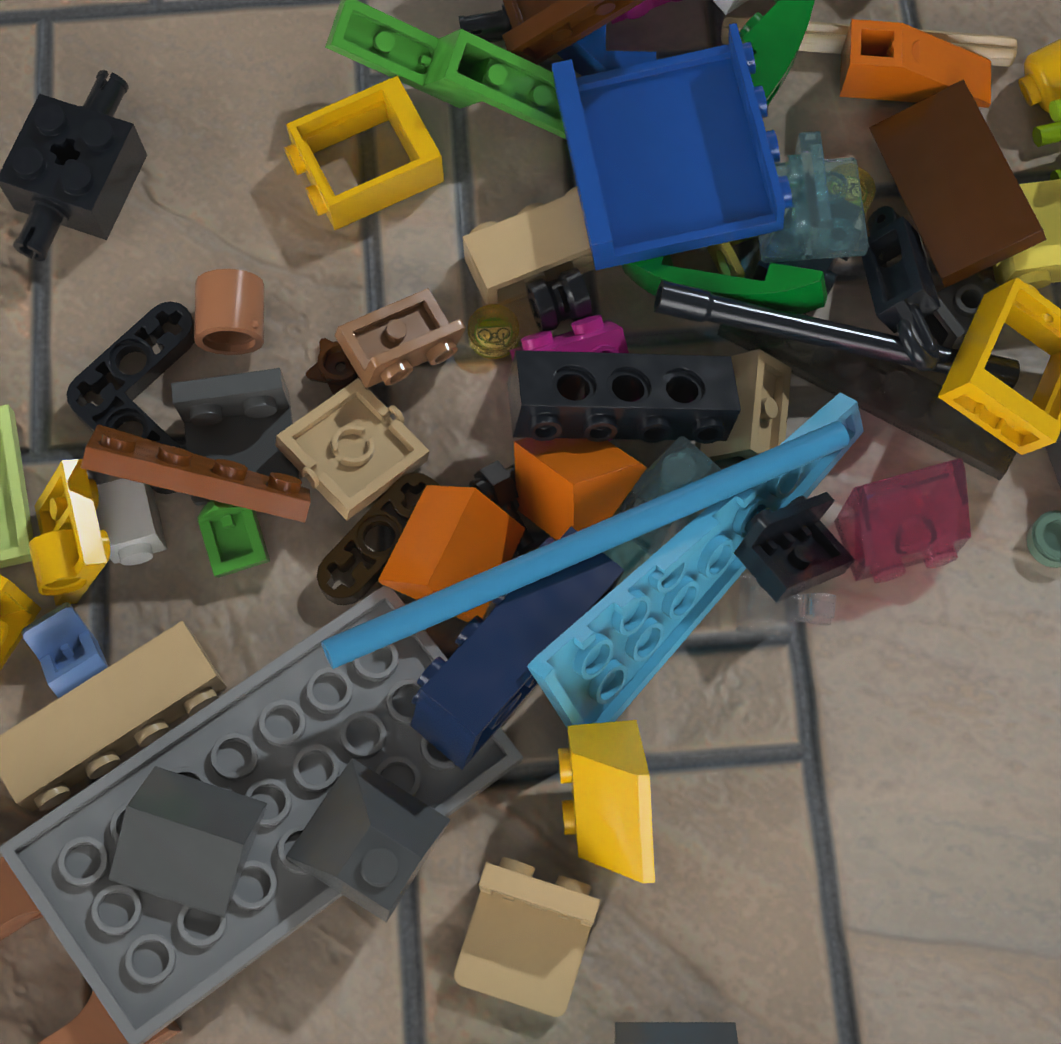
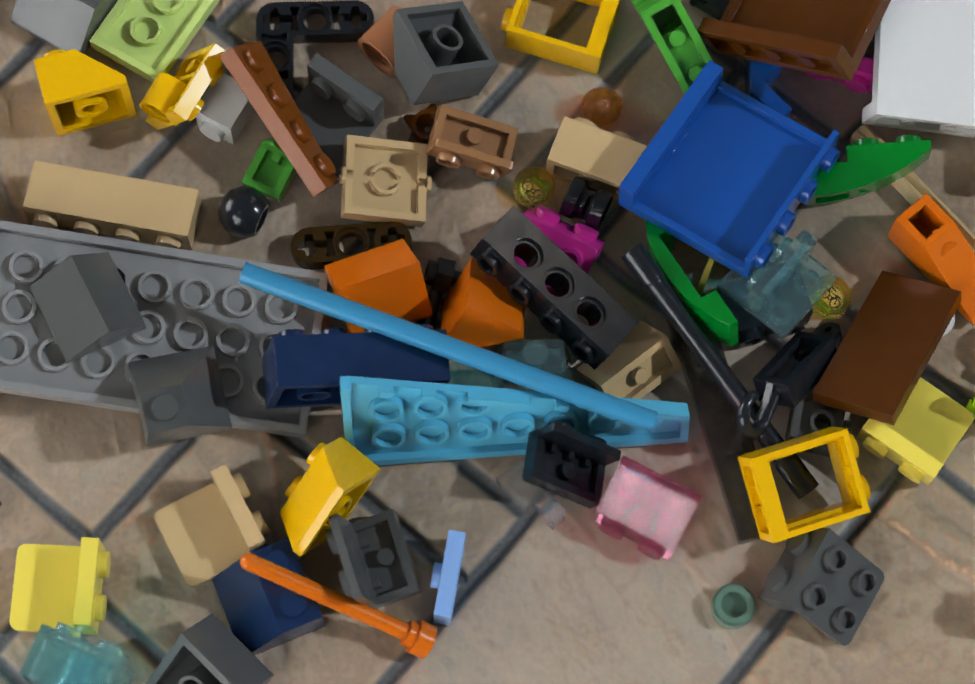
camera: 40 degrees right, 0 degrees up
(64, 648) = (126, 148): medium blue bracket -> none
(244, 602) = (243, 211): none -> black piece
(289, 281) = (440, 53): none -> dark grey slope
(480, 202) = (602, 106): none -> clear orange plate
(650, 952) = (262, 611): none -> dark blue slope
(713, 811) = (373, 559): none -> dark grey bracket
(792, 762) = (446, 577): none -> light blue plate
(822, 848) = (416, 636): none -> orange piece

